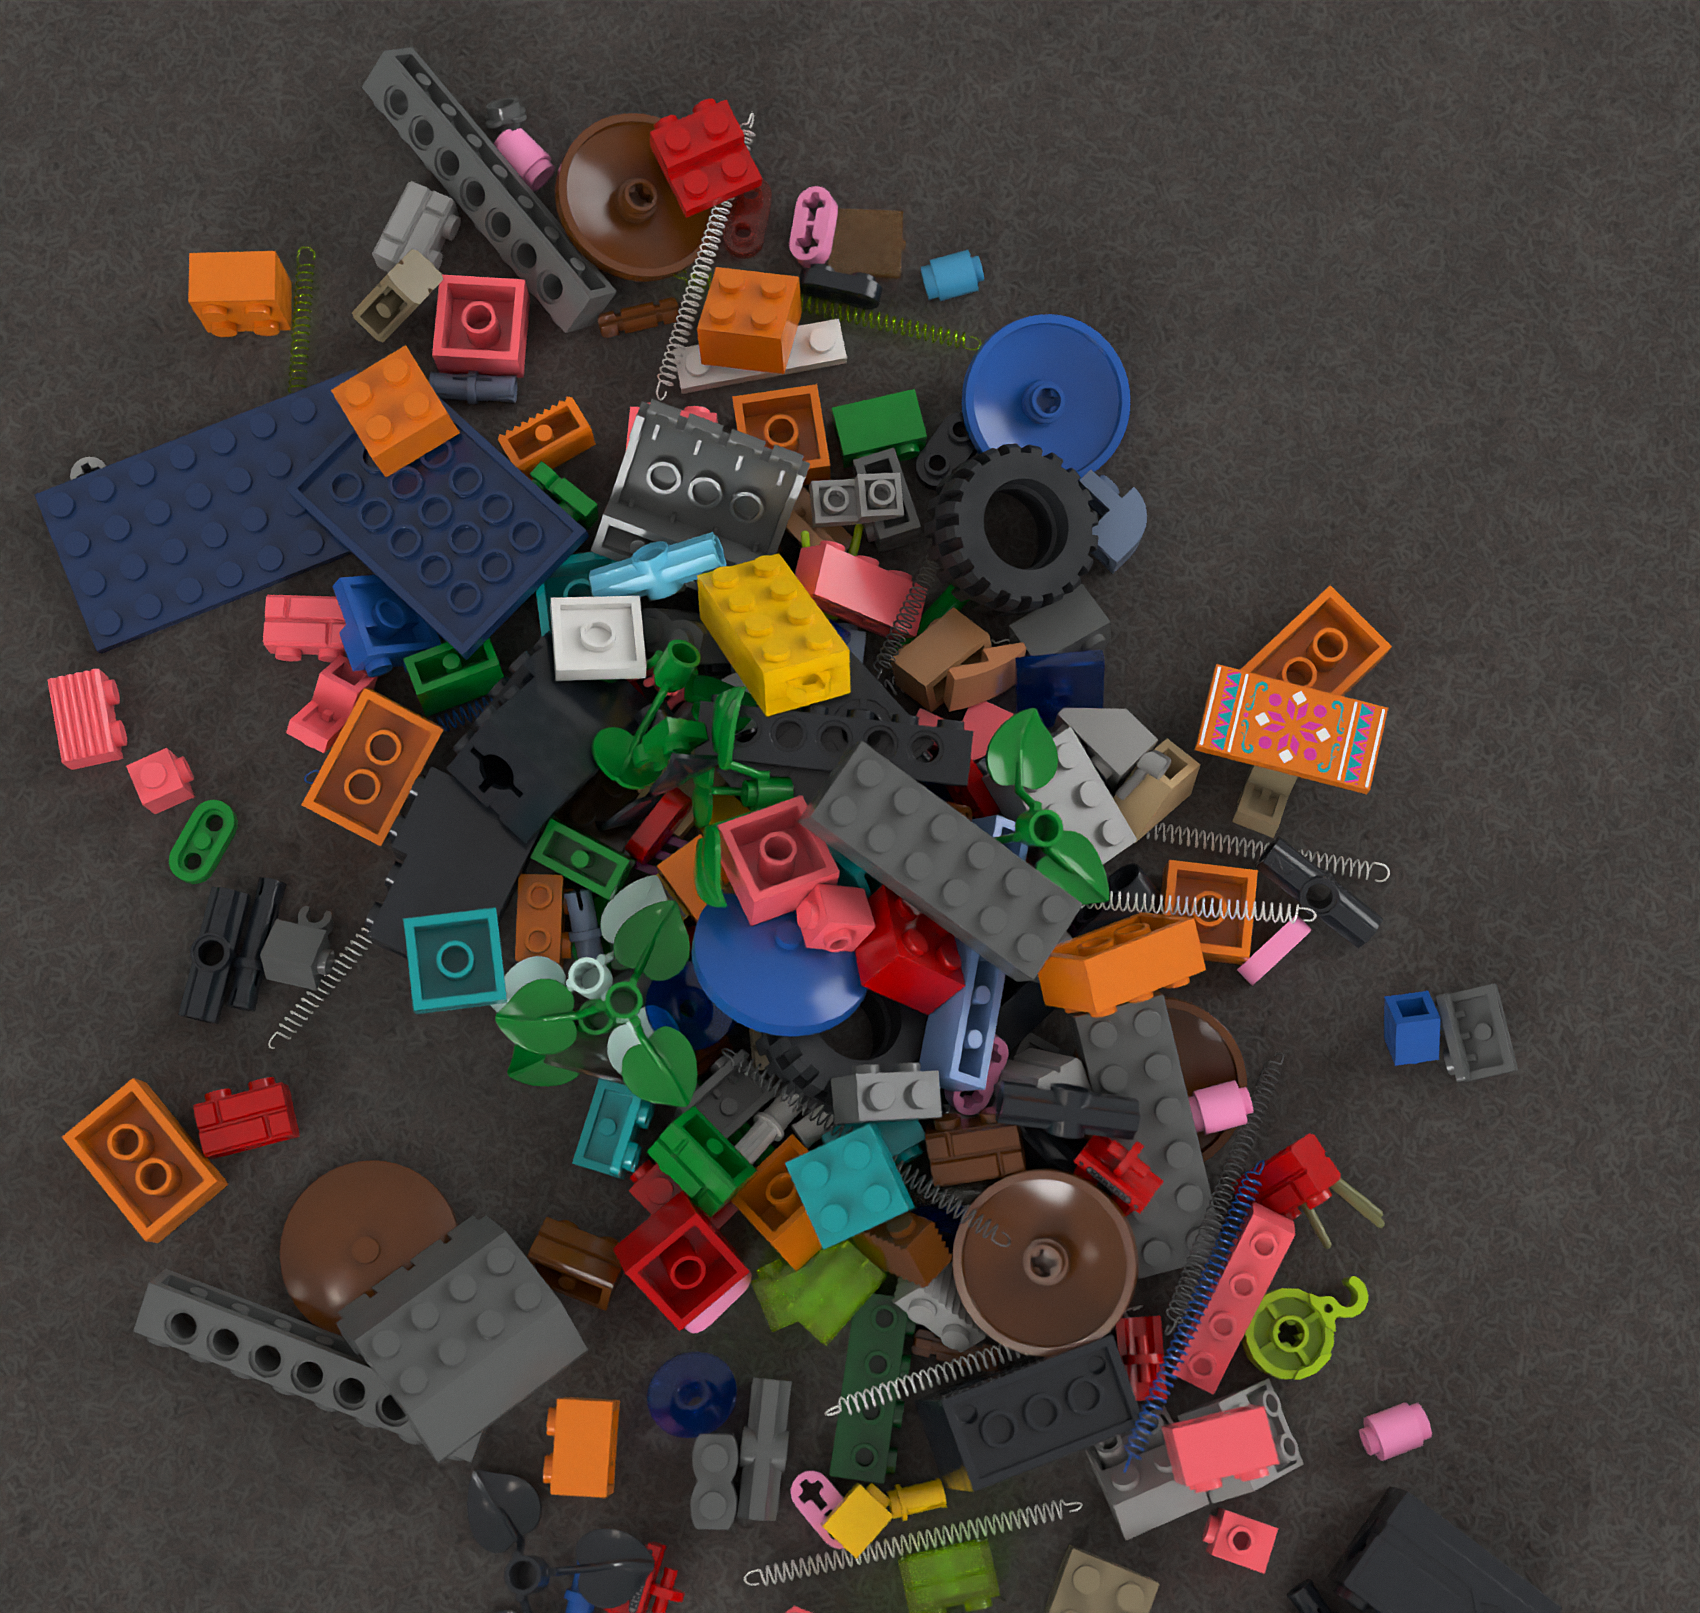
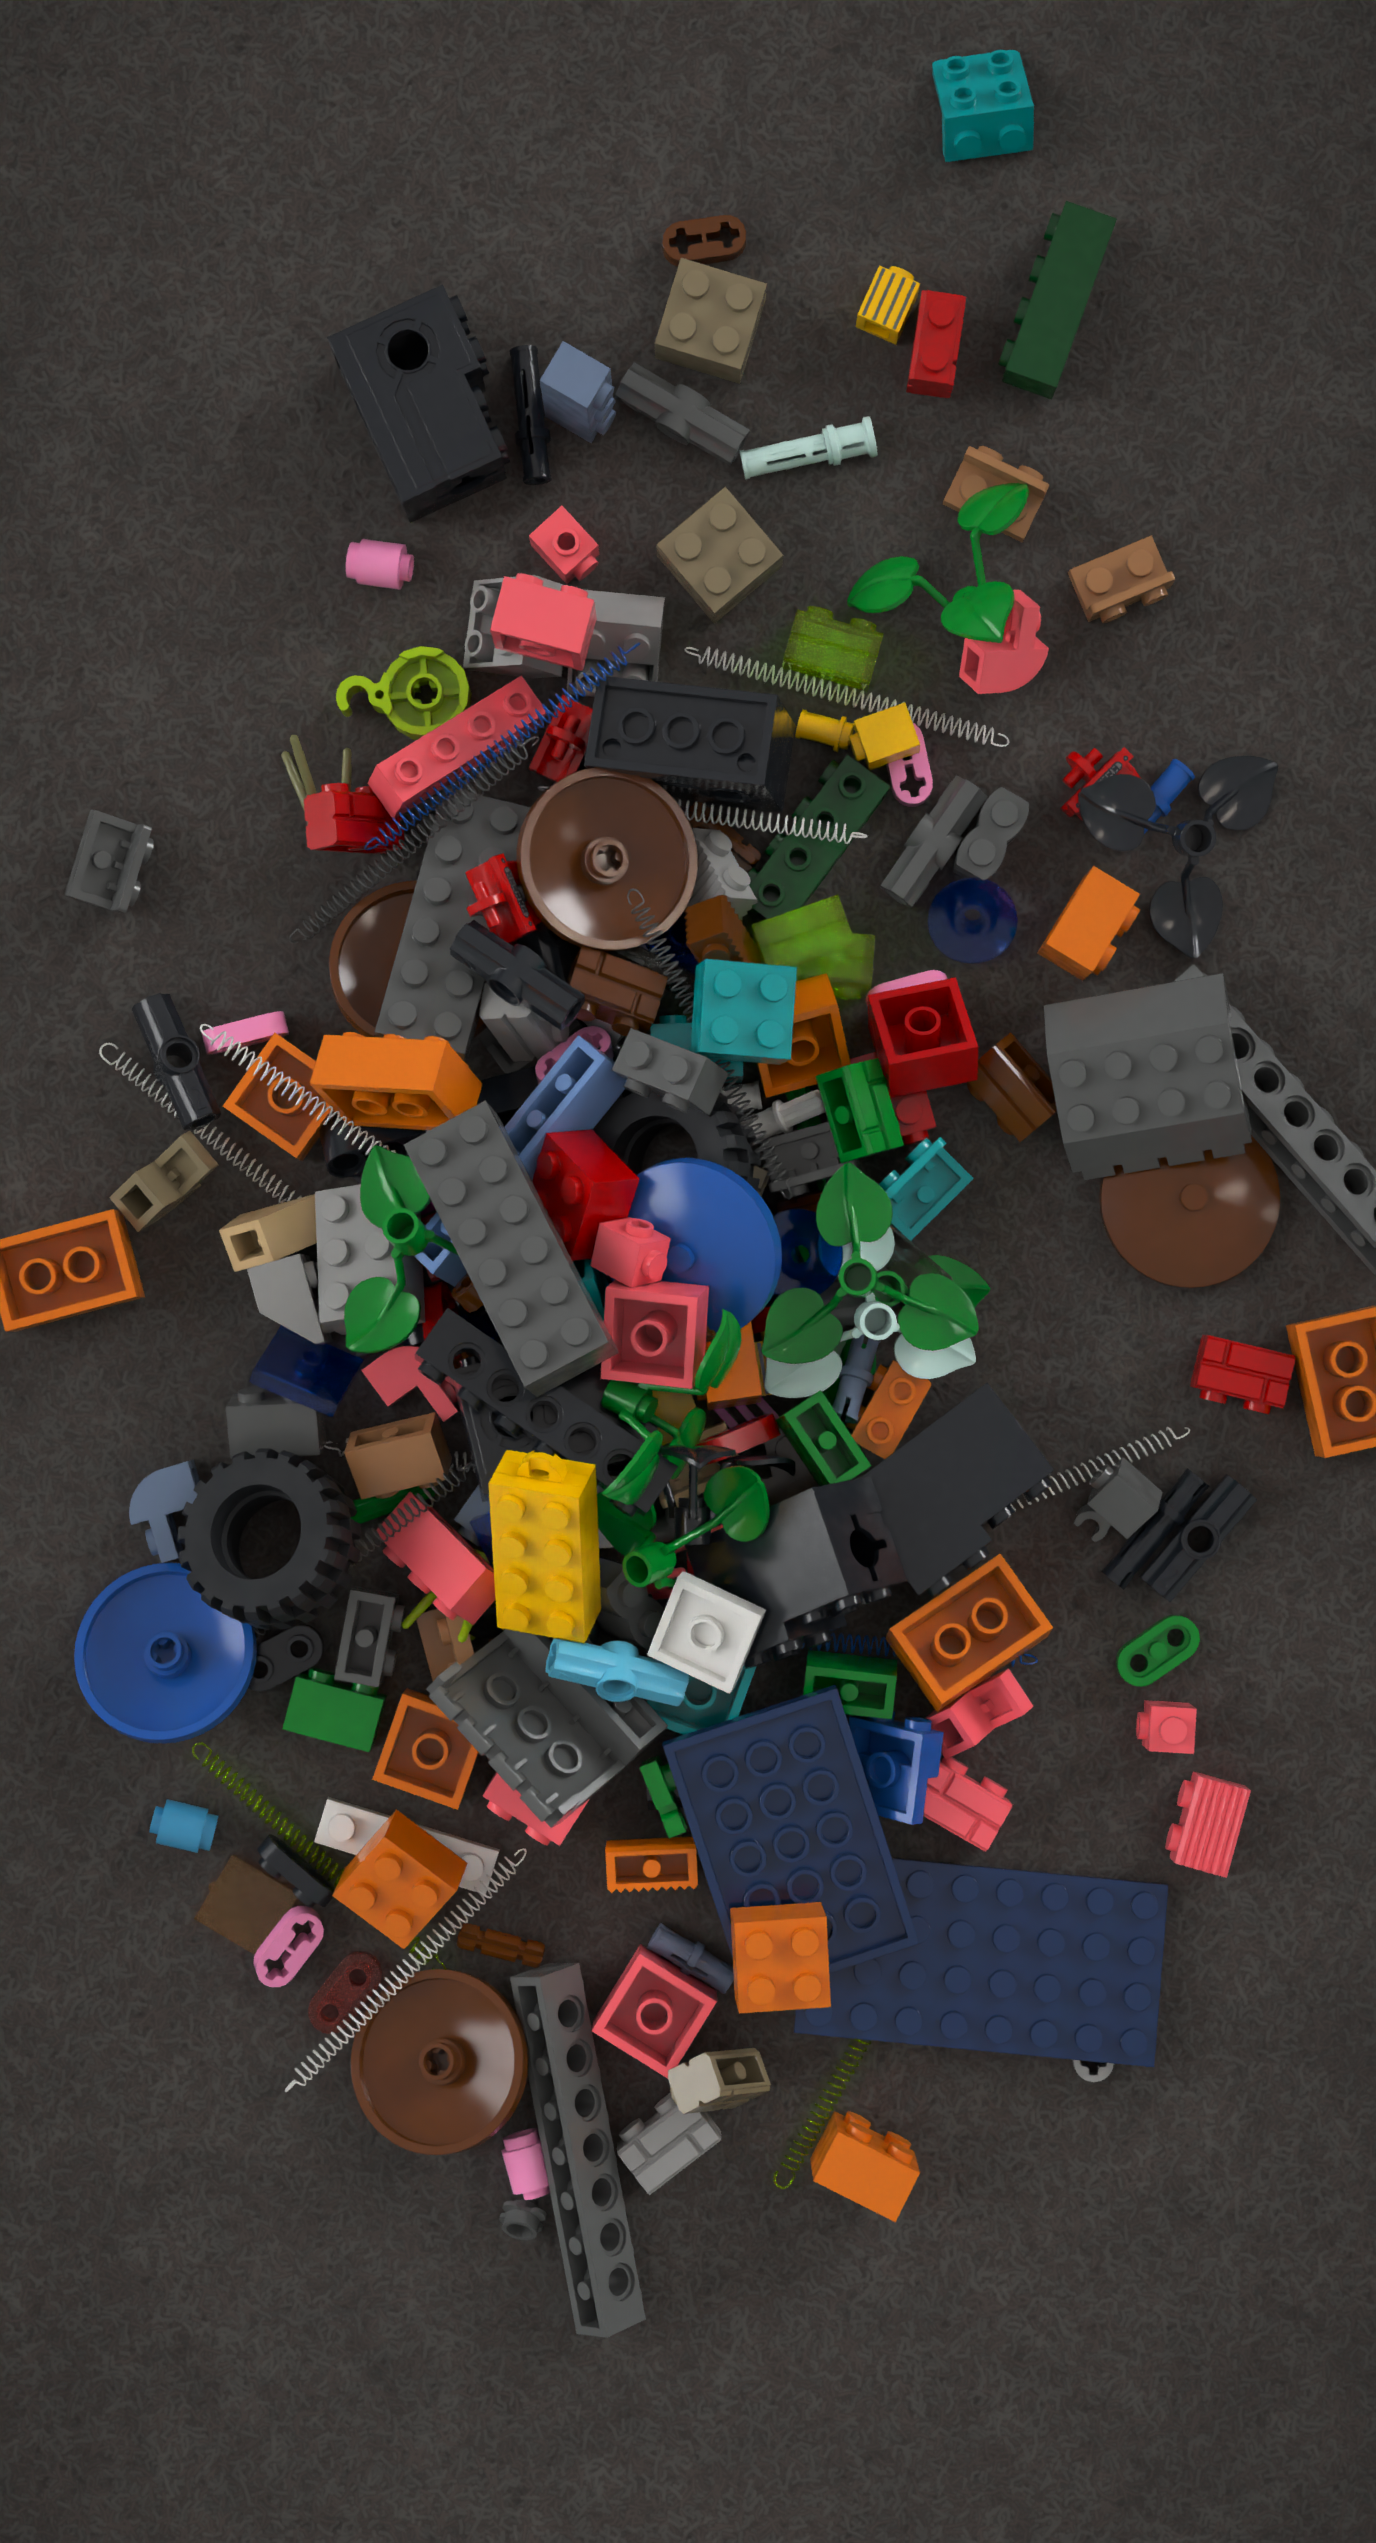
camera: 150 degrees left, 10 degrees up
(455, 961) = (987, 1398): teal brick -> none
(668, 737) = (695, 1489): green plate -> none
(704, 156) = (356, 2065): red plate -> none
(856, 500) = (396, 1645): light grey slope -> none
(982, 681) = (380, 1413): nougat slope -> none
(1150, 763) = (262, 1250): light grey hand -> none
(1220, 1107) = (376, 915): bright pink brick -> none
(1291, 729) = (118, 1215): orange tile -> none
(1411, 1037) = (163, 896): blue brick -> none

